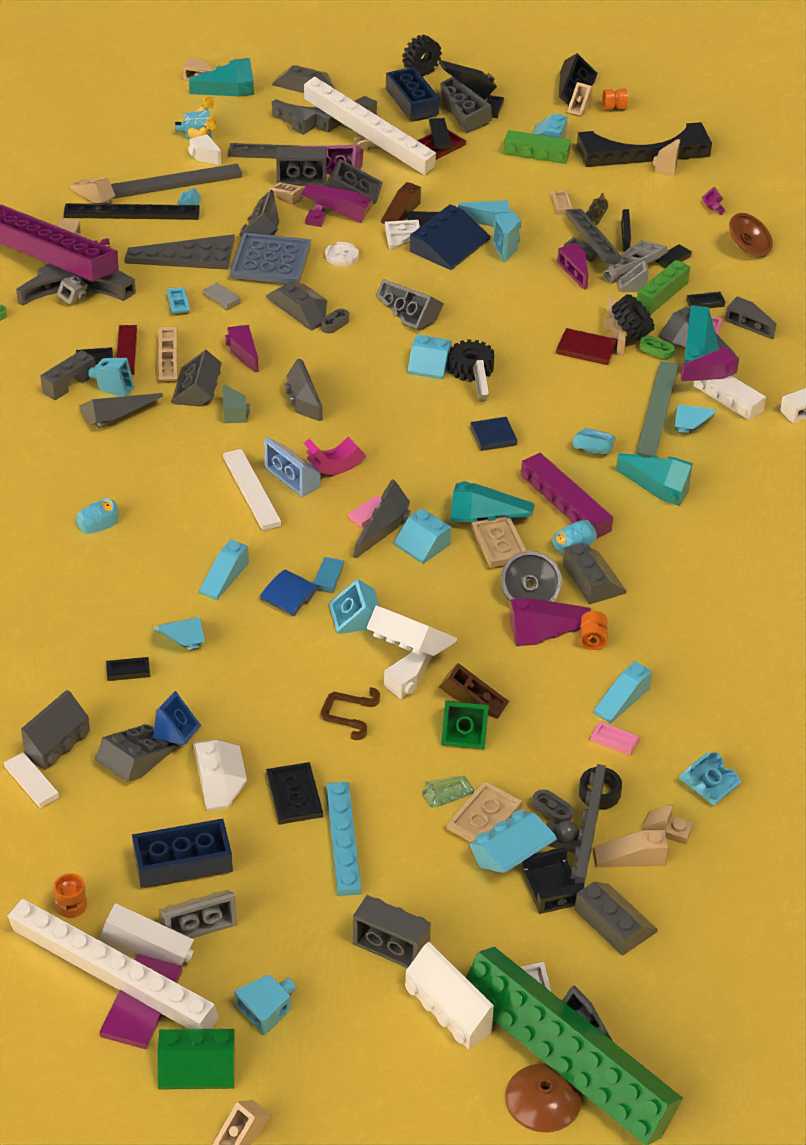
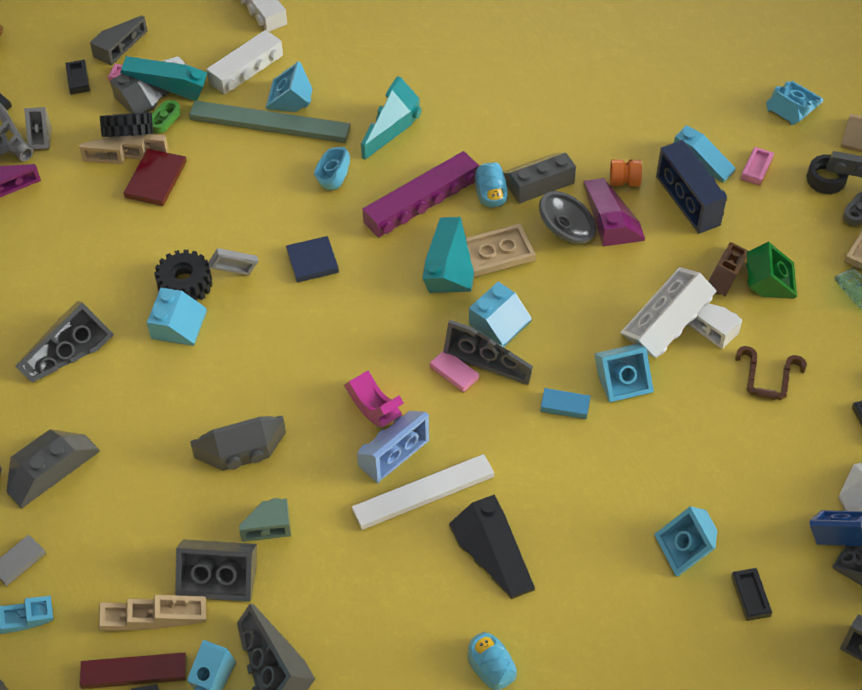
camera: 90 degrees left, 10 degrees up
(202, 522) = (488, 538): none -> black wedge
(225, 569) = (577, 503): medium azure slope -> none
(242, 345) = (139, 520): magenta slope -> none
(288, 592) = (602, 438): blue slope -> none
(335, 321) = (84, 426): dark grey beam -> none
(570, 668) = (691, 186): none -> dark blue brick
(664, 286) = (59, 105): bright green brick -> none
(712, 366) = (221, 56): magenta slope -> none

